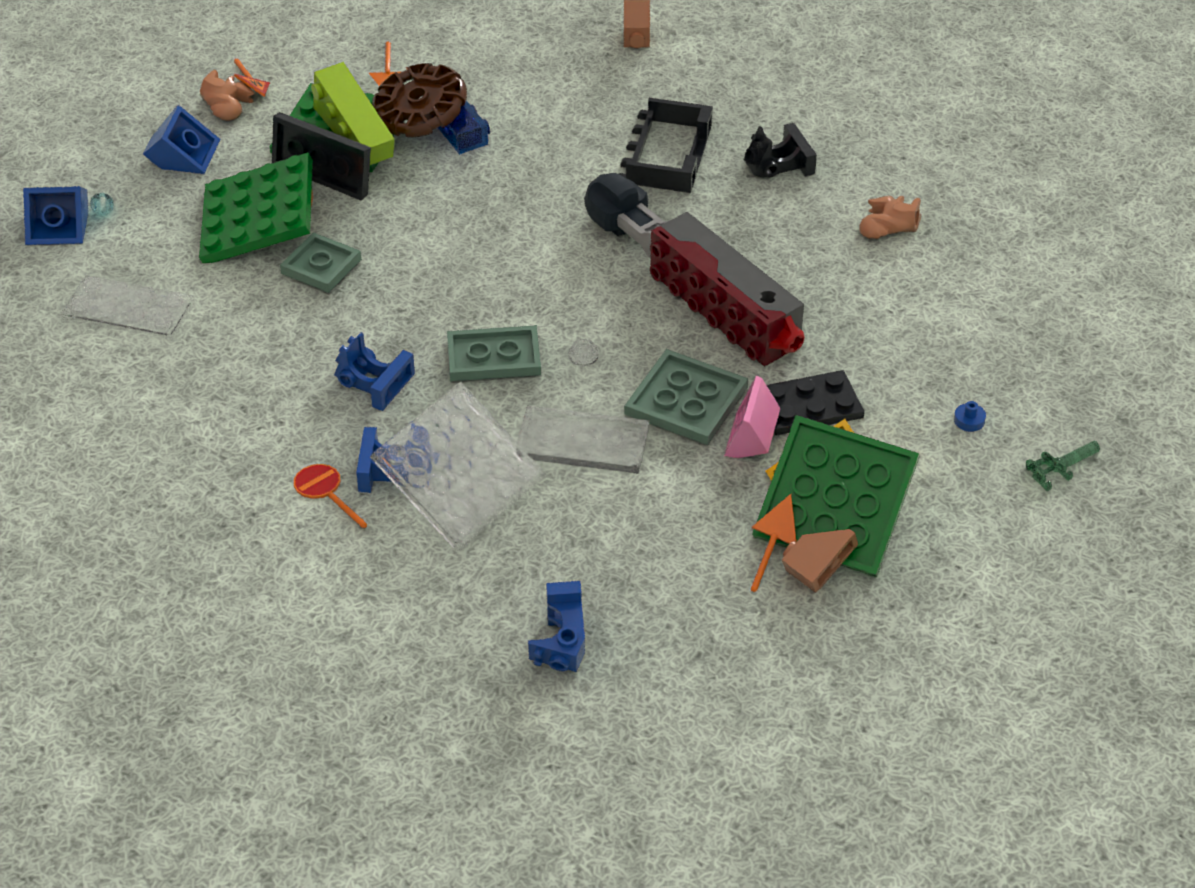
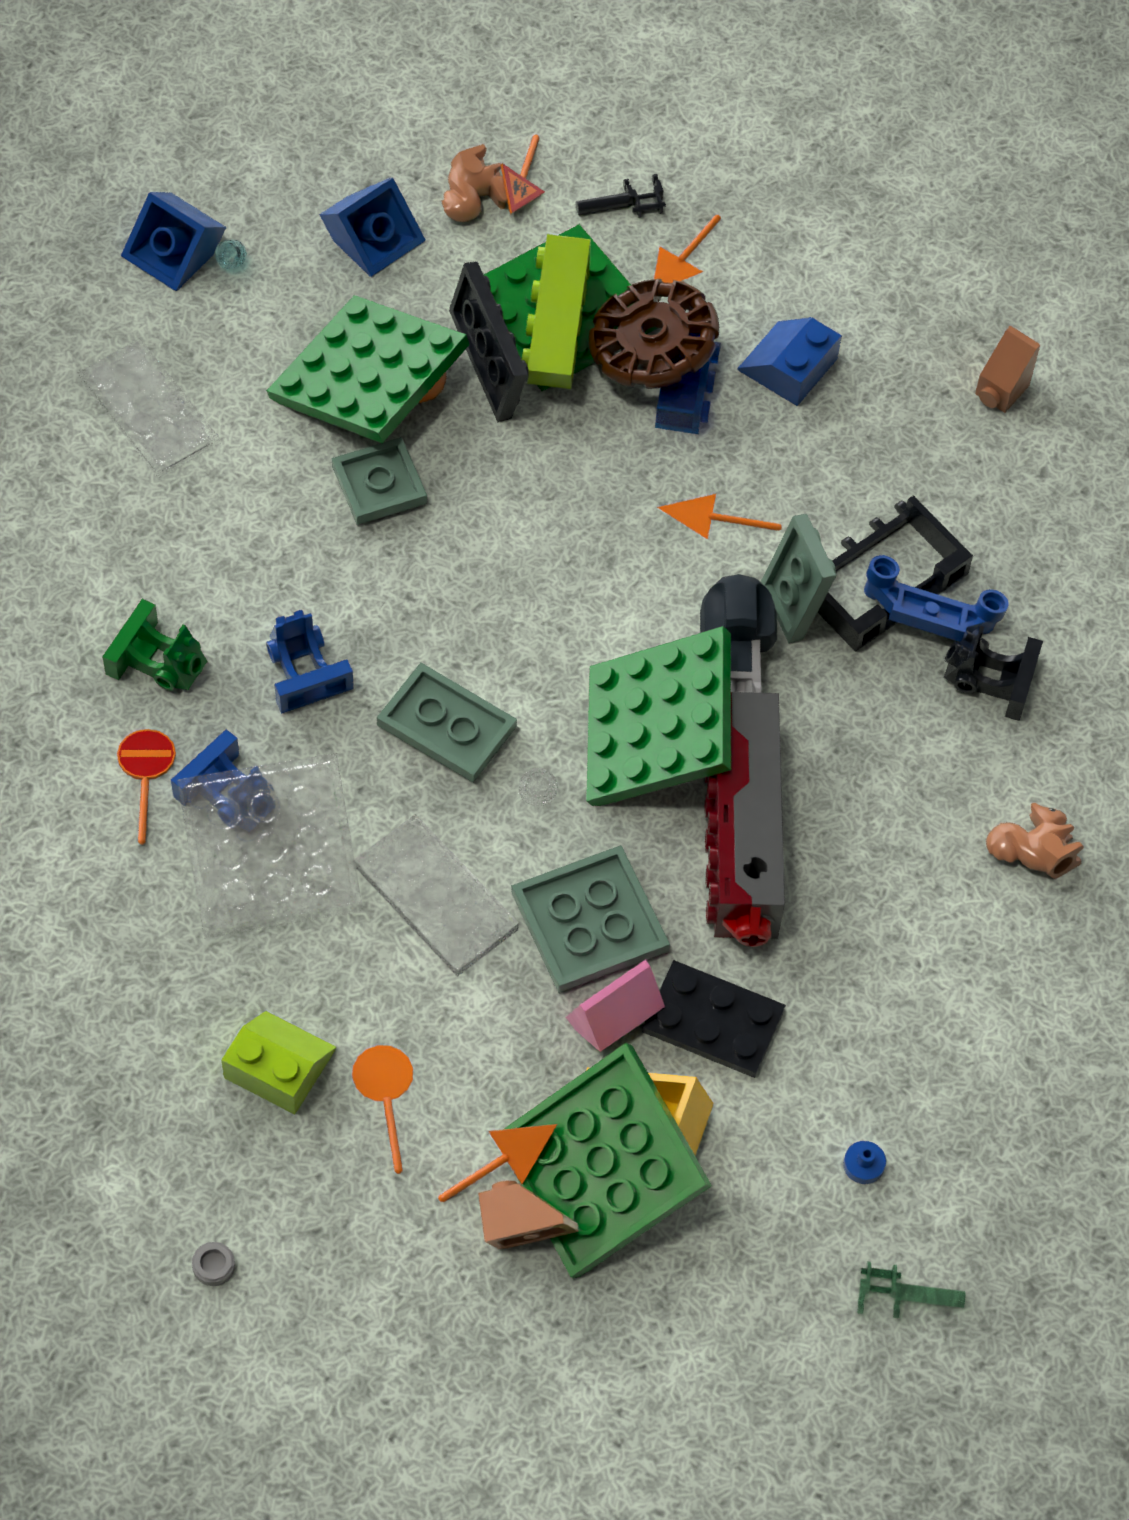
camera: 35 degrees right, 15 degrees up
(290, 413) = (139, 642): none -> green tile
(325, 58) = (625, 199): none -> black piece
(505, 77) = (793, 357): none -> blue slope
(530, 180) = (699, 512): none -> orange piece
(568, 646) = (219, 1100): blue tile -> none
(594, 573) = (276, 1060): none -> lime slope
(626, 269) = (659, 717): none -> plate
(635, 153) = (799, 577): none -> sand green plate
(653, 550) = (384, 1075): none -> orange piece
(654, 712) = (213, 1263): none -> light grey tile
(711, 146) = (929, 610): none -> blue plate

